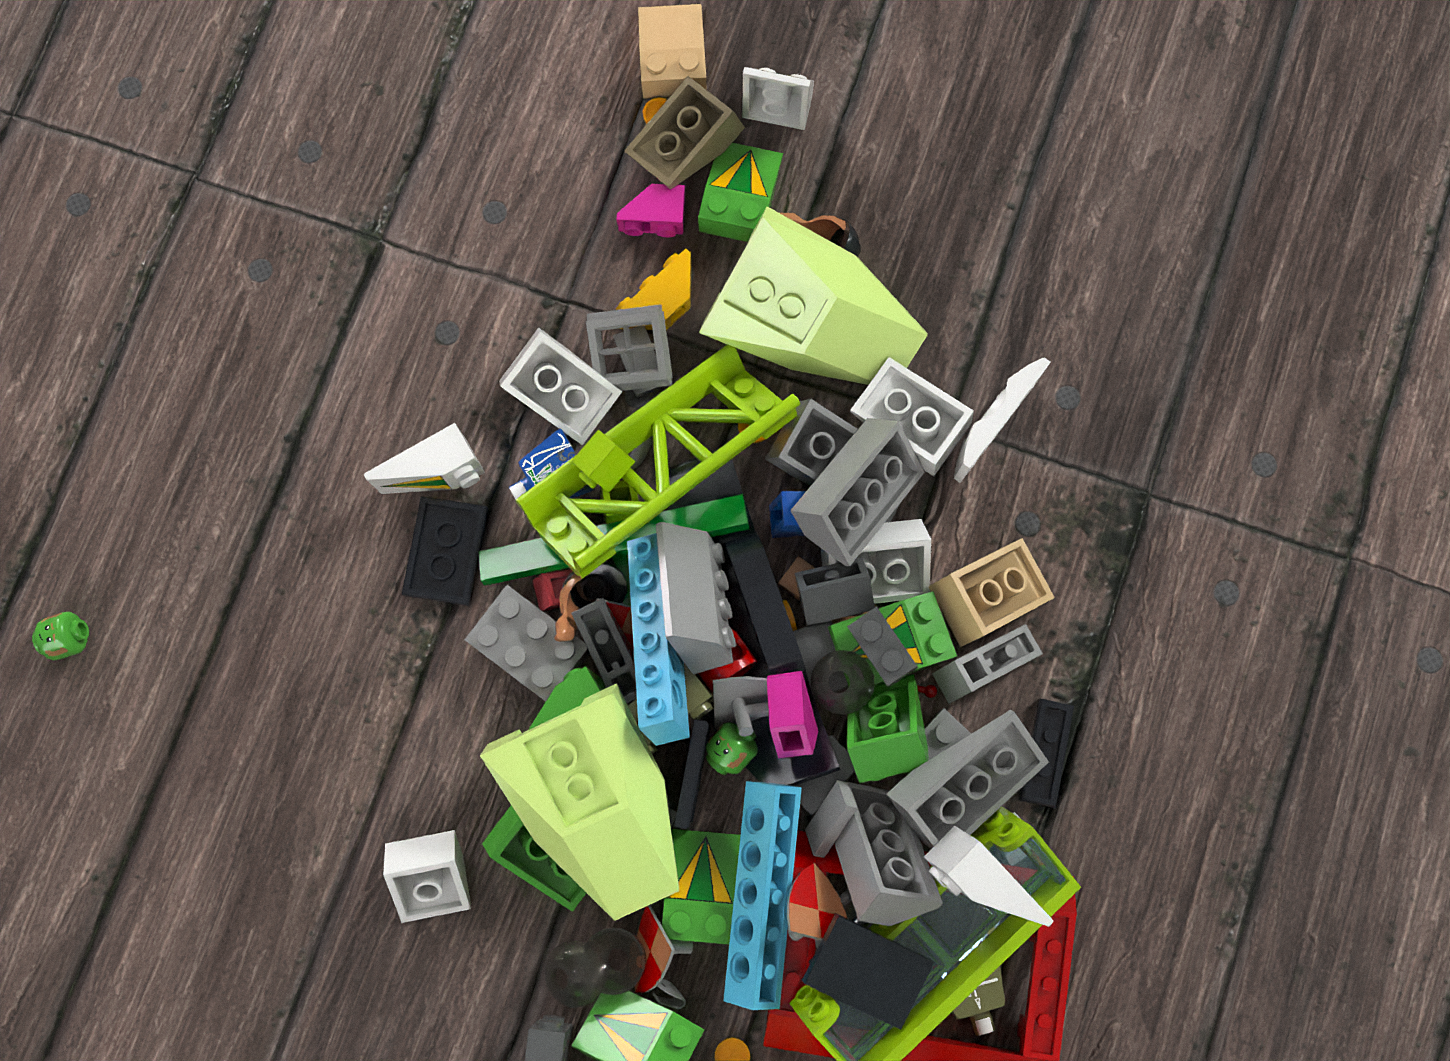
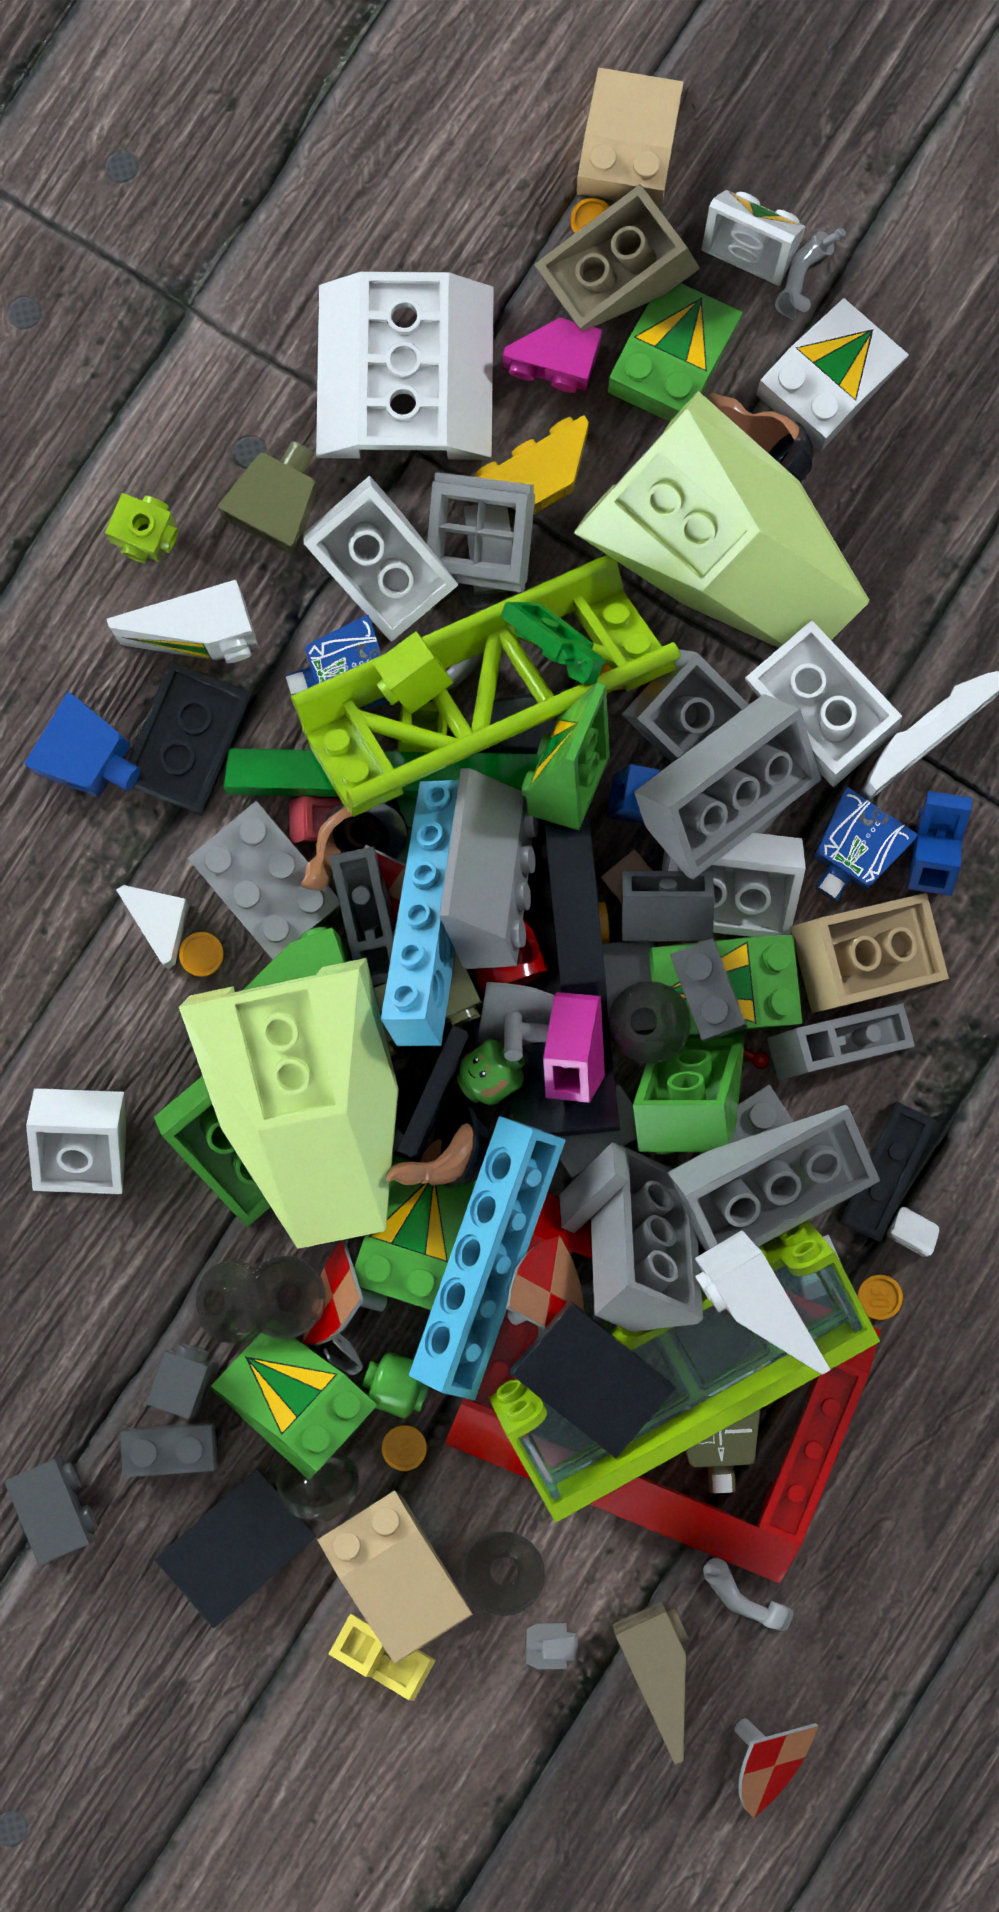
camera: 15 degrees right, 5 degrees up
(368, 578) = (82, 751): none -> blue torso
(378, 403) = (135, 515): none -> lime brick
(454, 691) = (159, 918): none -> white slope
(471, 360) = (273, 498): none -> olive torso
(491, 710) = (201, 954): none -> light orange piece
(568, 233) = (437, 361): none -> white slope
(705, 411) = (556, 638): none -> green hinge
(711, 1010) = (392, 1387): none -> bright green head
(718, 817) = (455, 1153): none -> piece
(737, 499) = (570, 762): none -> bright green slope
(824, 97) = (815, 249): none -> light grey piece
(857, 180) = (831, 373): none -> white slope
(963, 513) = (858, 845): none -> torso
(1021, 498) = (938, 847): none -> blue brick
(1067, 849) = (880, 1296): none -> light orange piece
(1078, 794) = (913, 1232): none -> white slope

